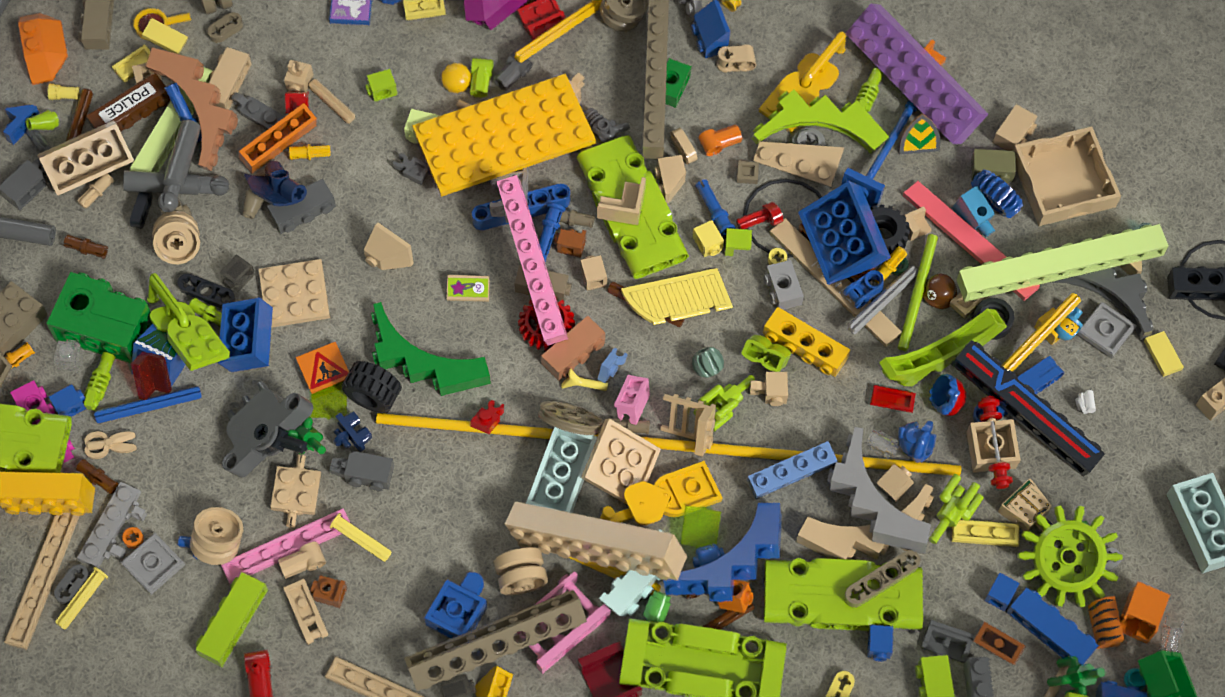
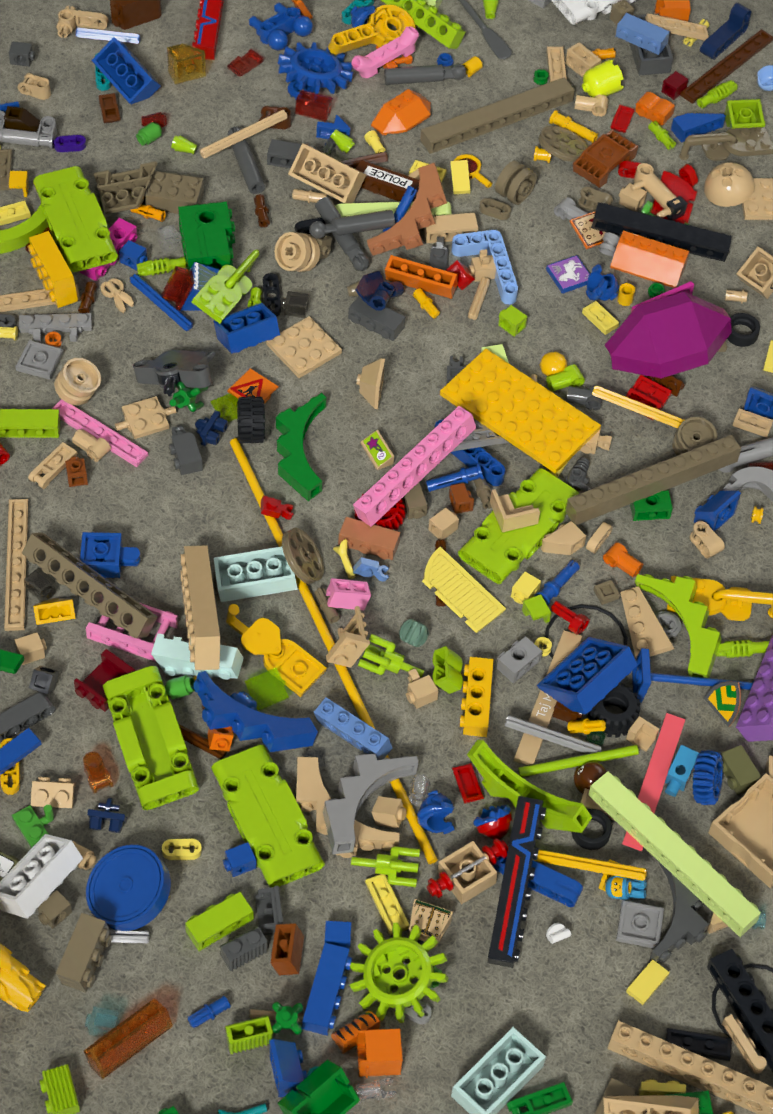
camera: 60 degrees right, 10 degrees down
(277, 56) = (471, 244): none -> light blue beam
(361, 538) = (129, 470): light yellow axle -> none
(520, 571) = (156, 579): tan wheel -> none
(619, 460) = (288, 604): tan plate -> none
(862, 292) = (549, 716): blue piece -> none
(883, 580) = (290, 834): dark tan beam -> none

